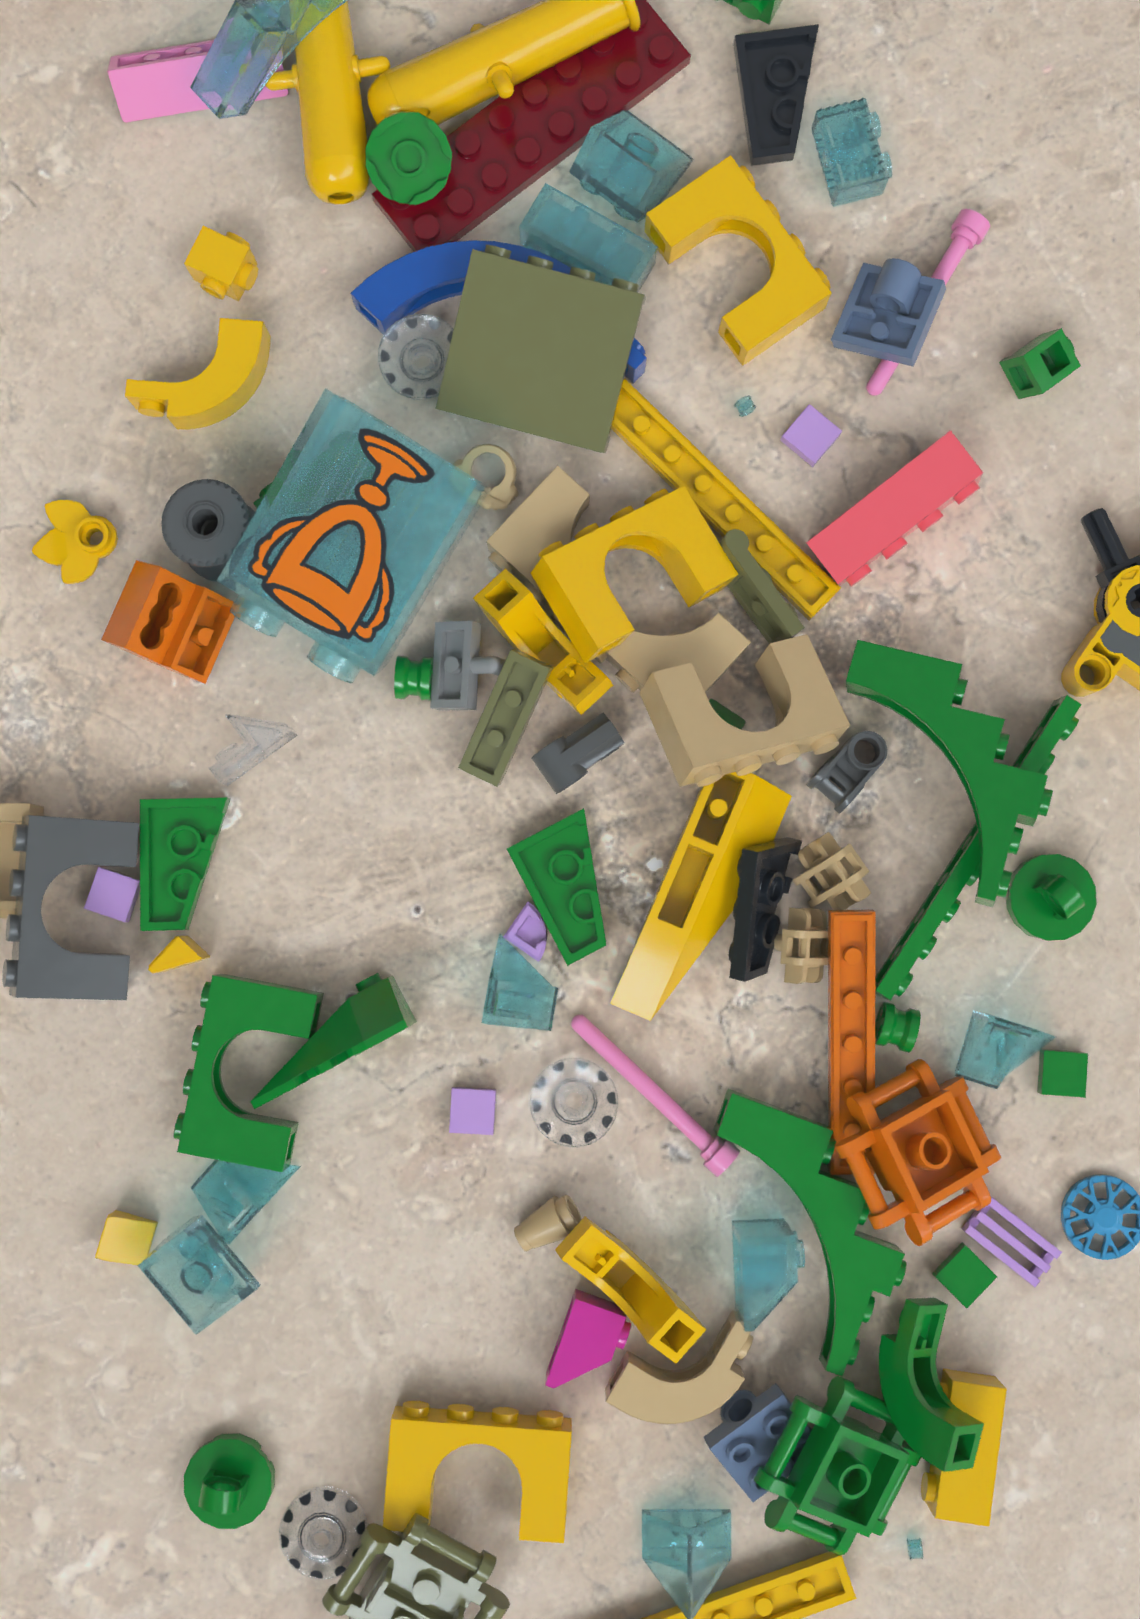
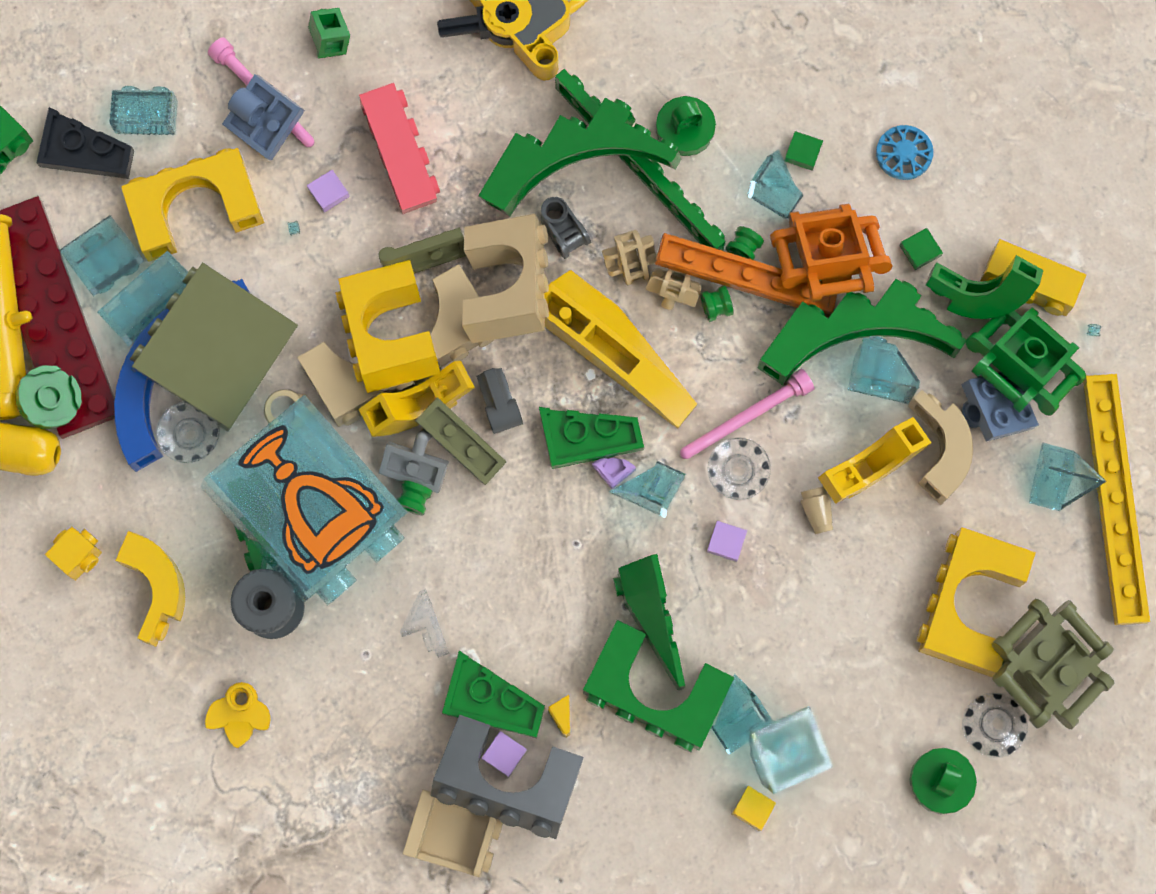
camera: 75 degrees left, 10 degrees down
(170, 621) = (320, 657): orange piece -> none
(586, 1338) = (902, 504): dark pink slope -> none
(721, 501) = (361, 257): yellow tile -> none
(759, 891) = (639, 313): black wing -> none
(799, 1010) = (716, 303): none -> green wheel
(1041, 1263) = (925, 198): lavender tile -> none

